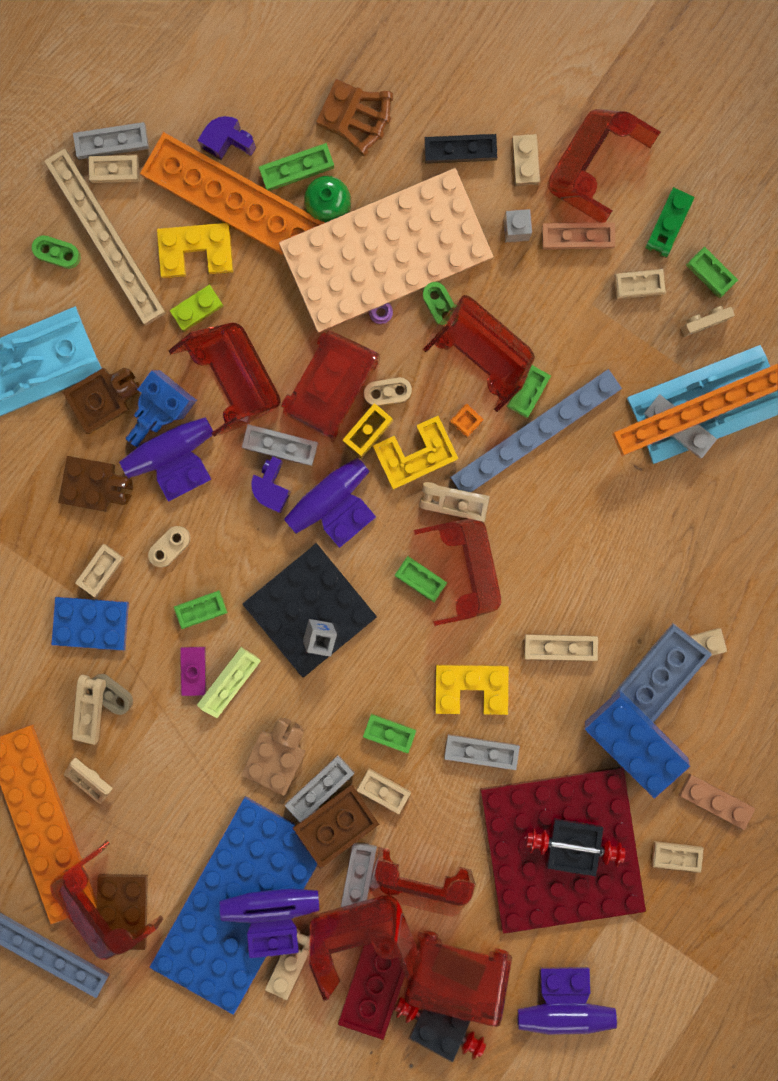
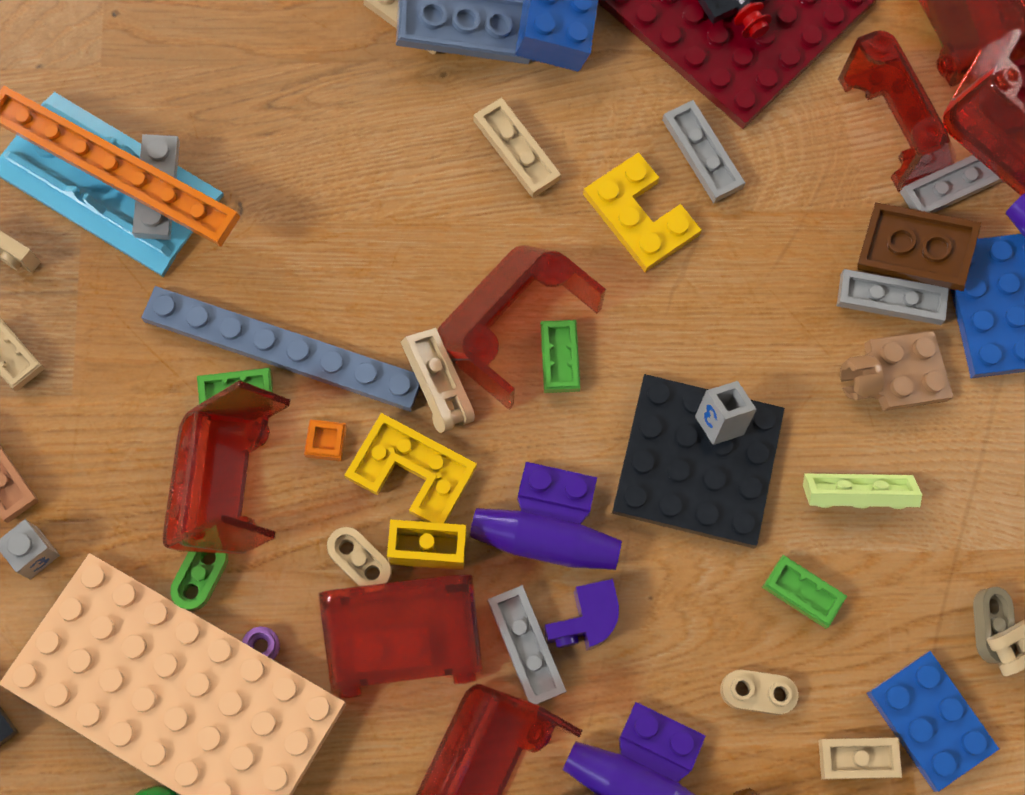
camera: 125 degrees left, 15 degrees down
(193, 671) = (882, 546): magenta plate -> none
(383, 791) = (834, 225): tan plate -> none
(389, 733) = (766, 264): bright green plate -> none

